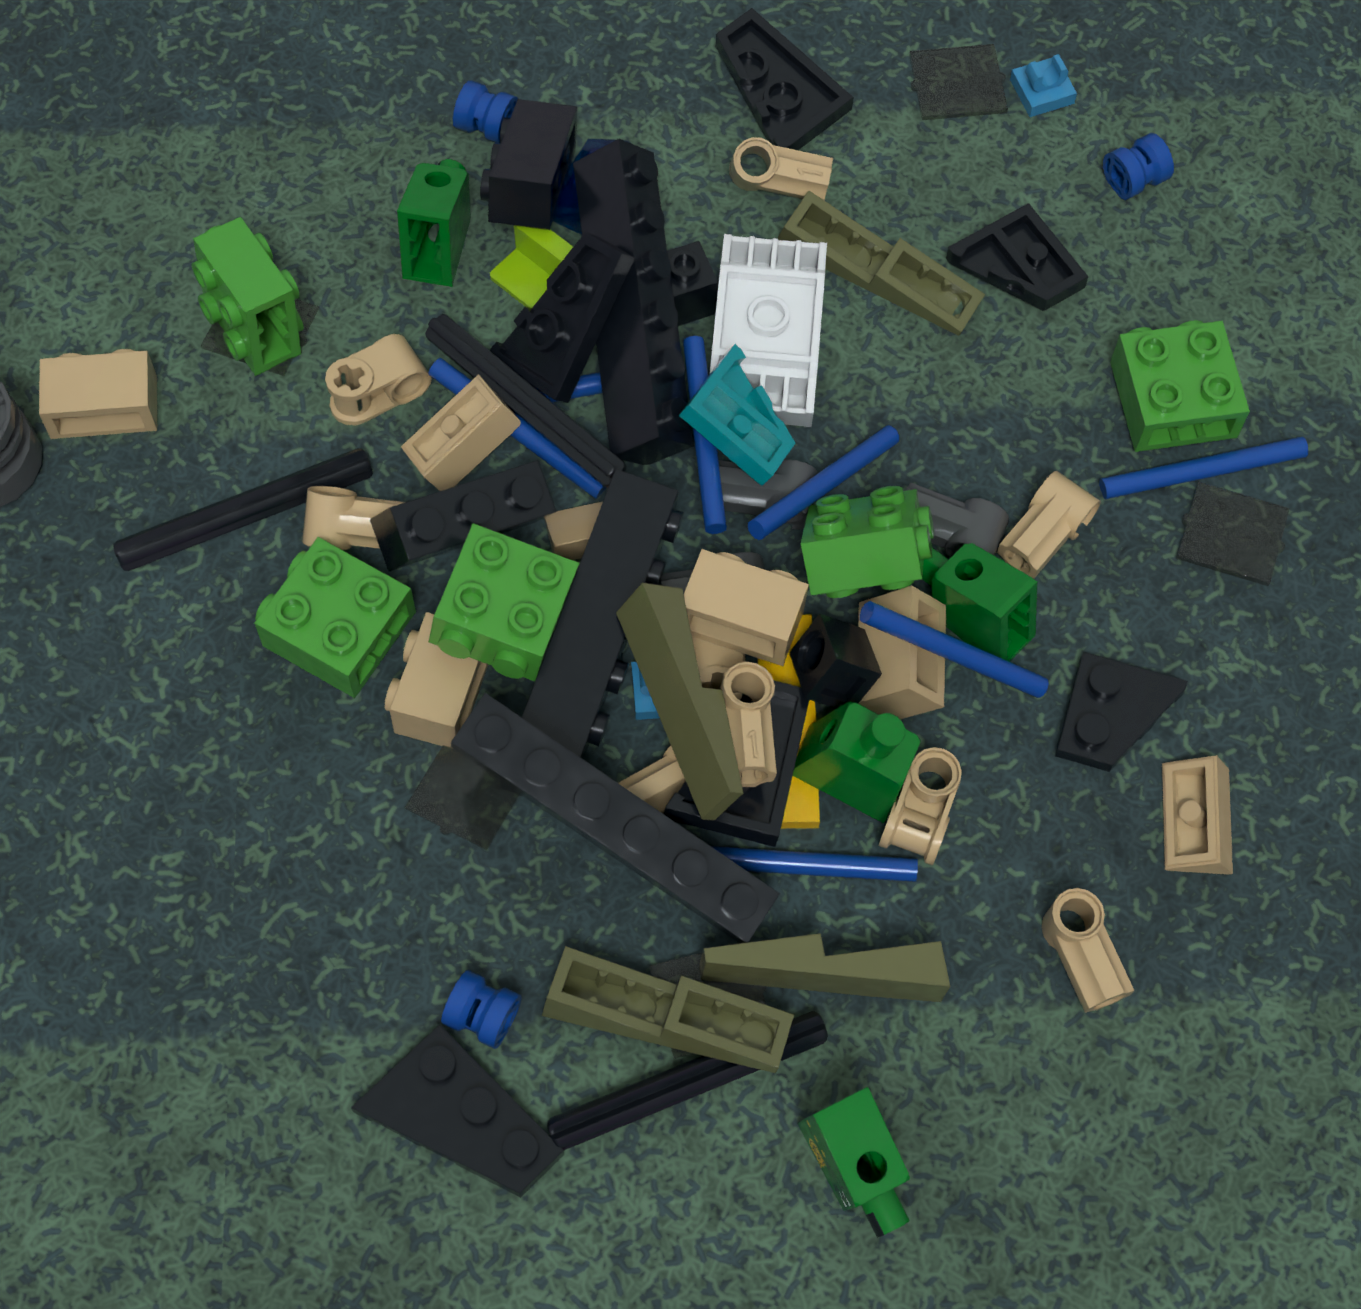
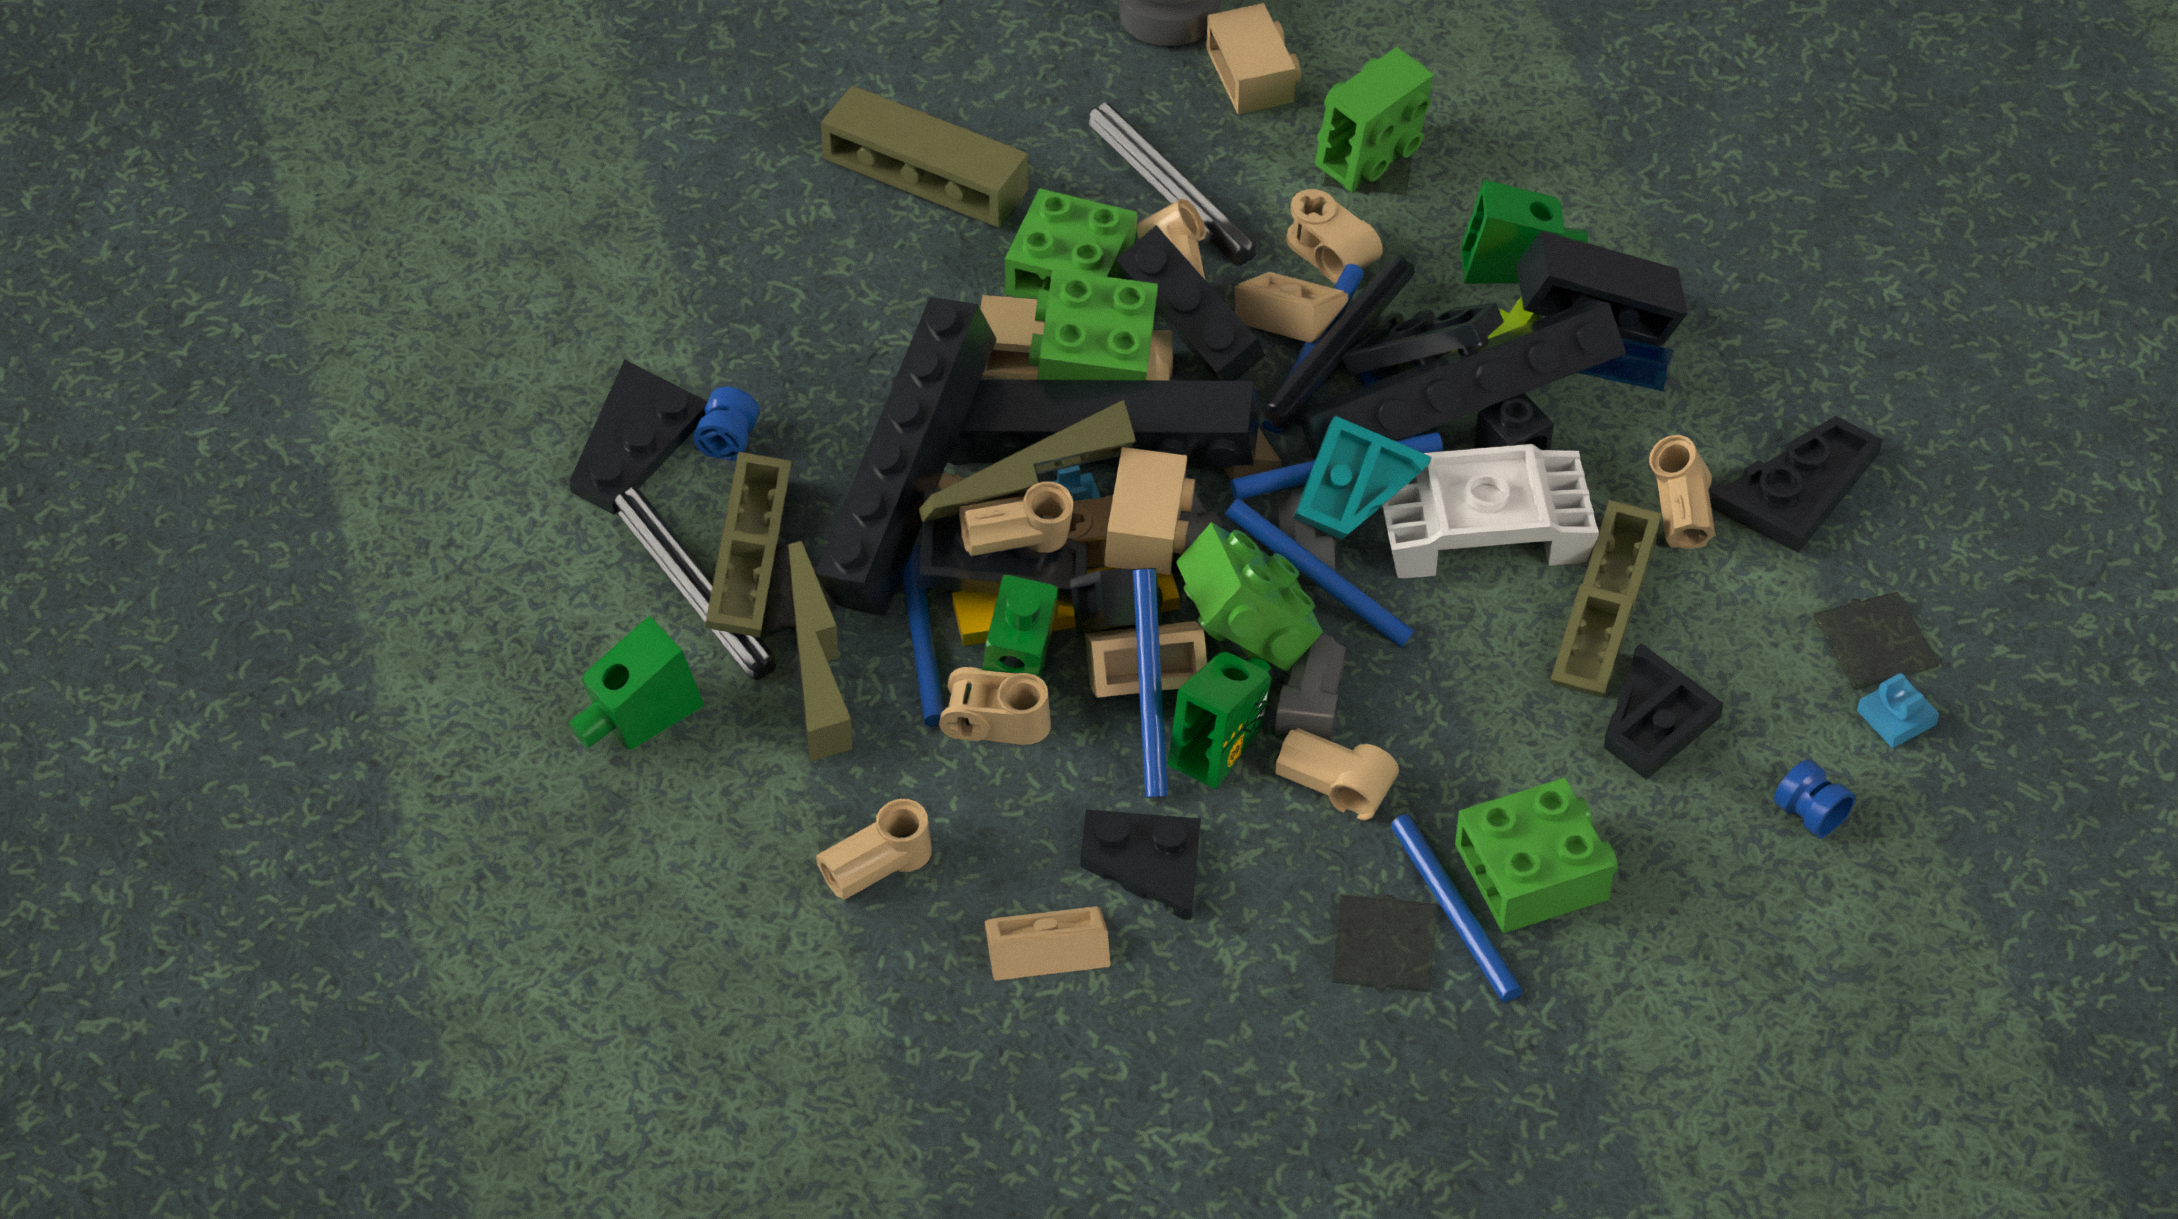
camera: 80 degrees right, 15 degrees down
(144, 734) = (980, 173): none -> olive brick
(482, 111) = (1669, 246): blue wheel -> none

